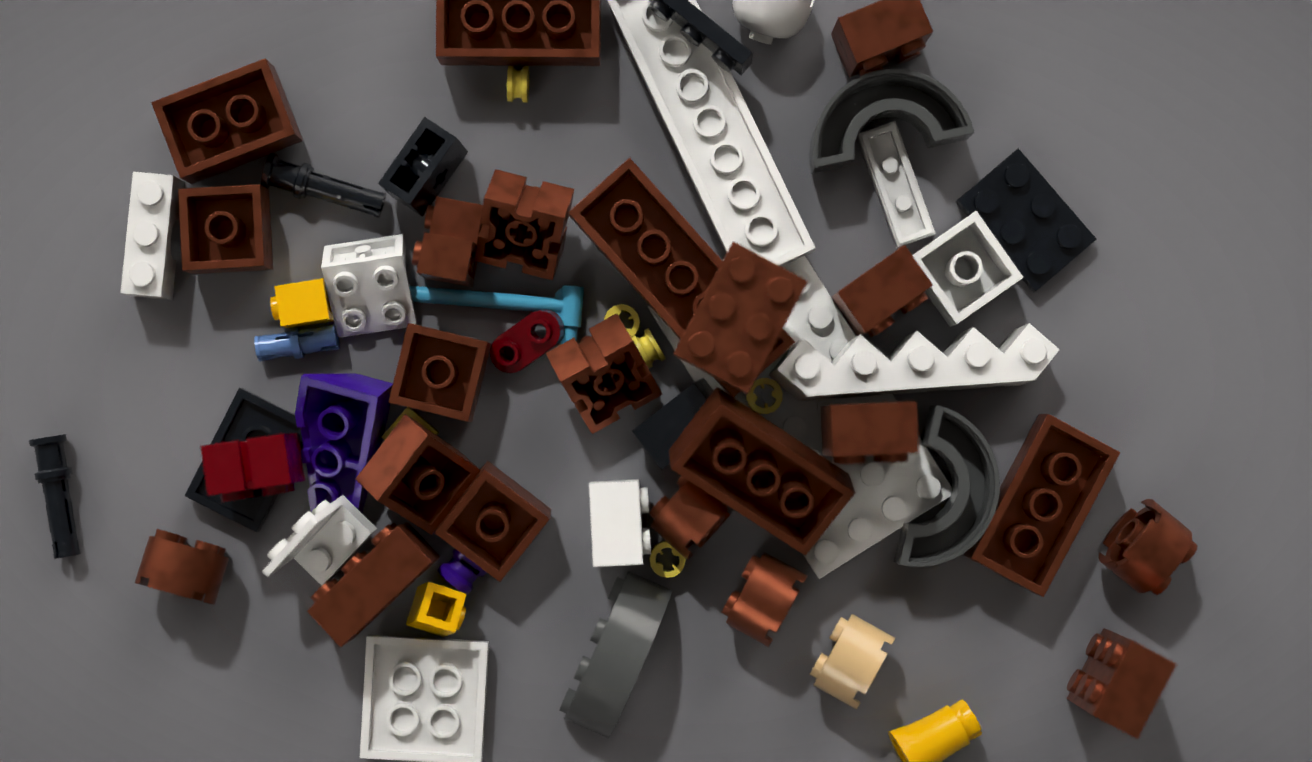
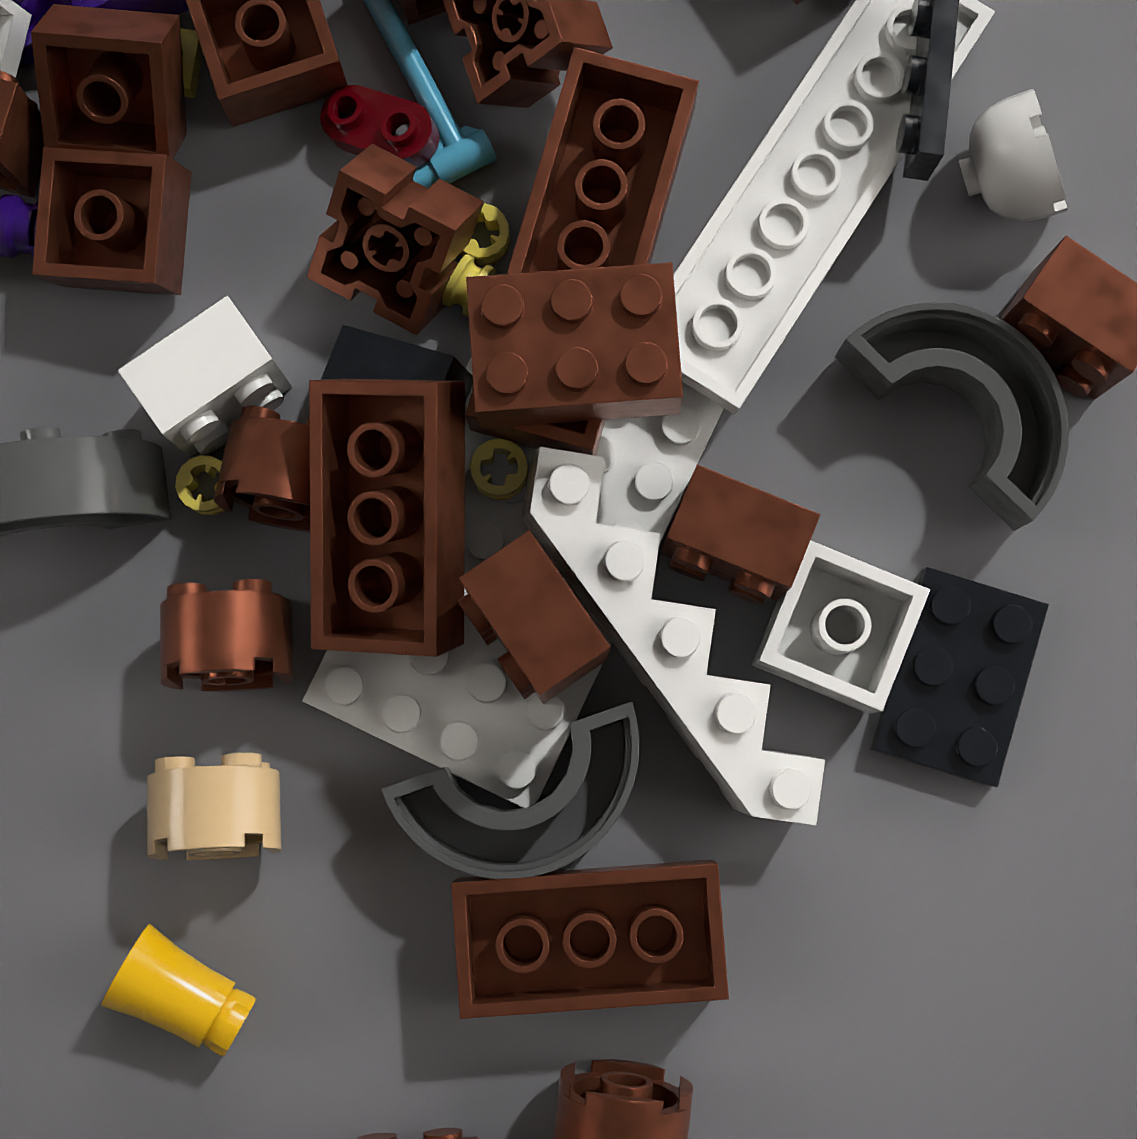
camera: 60 degrees right, 5 degrees down
(895, 184) = (893, 474): white tile -> none

